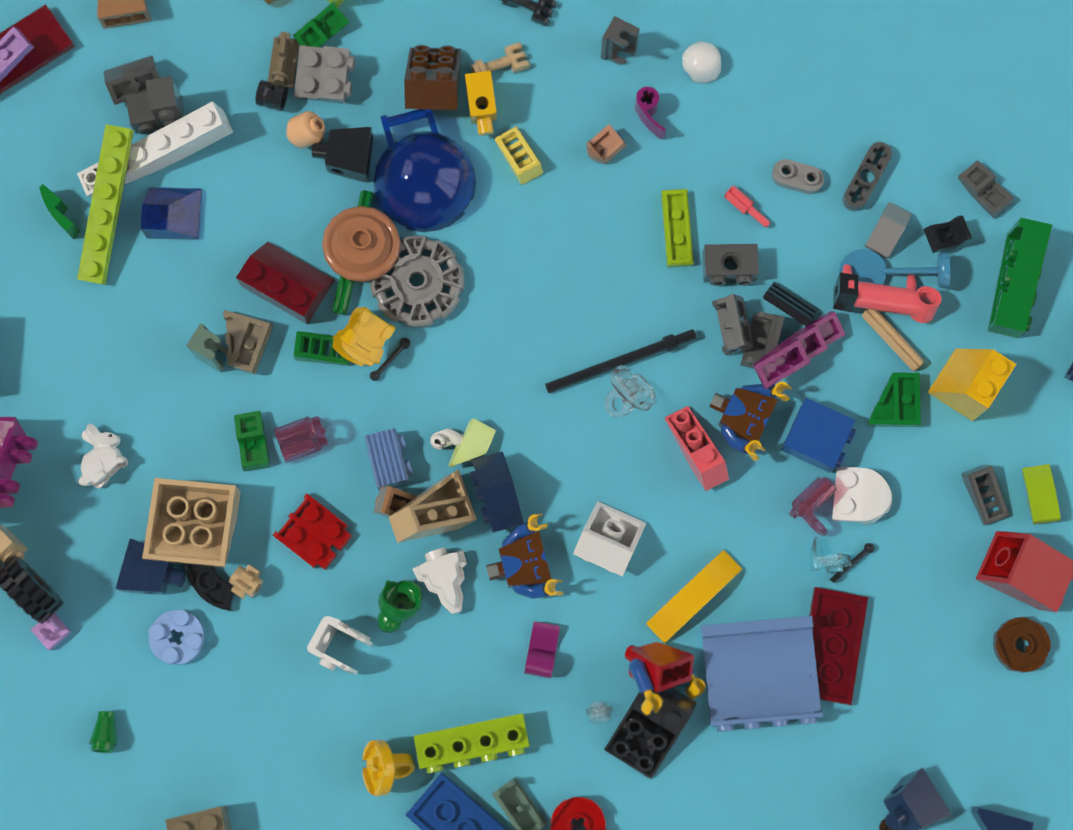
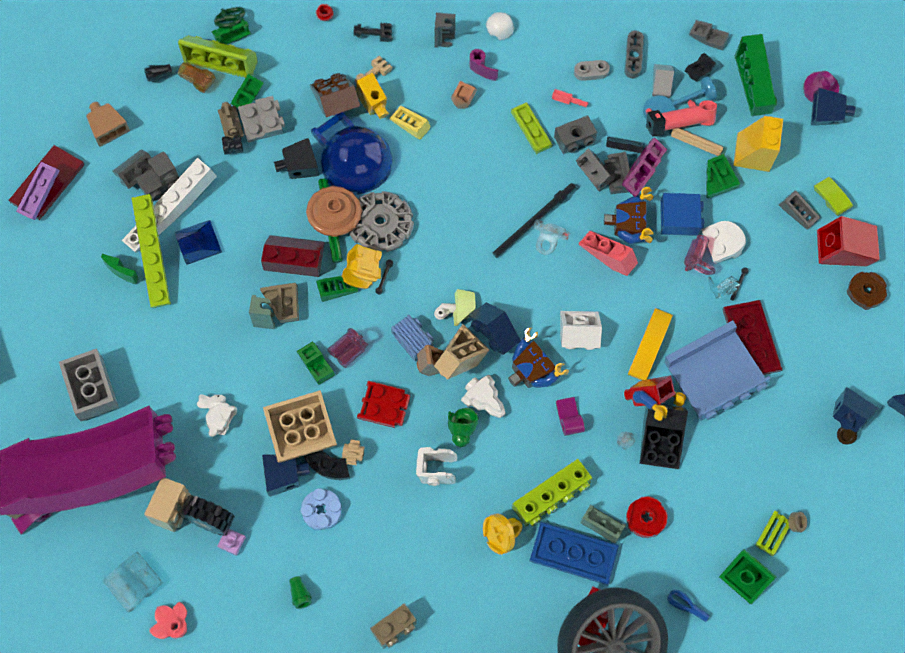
camera: 25 degrees left, 10 degrees down
(305, 129) = (265, 156): light nougat head -> none

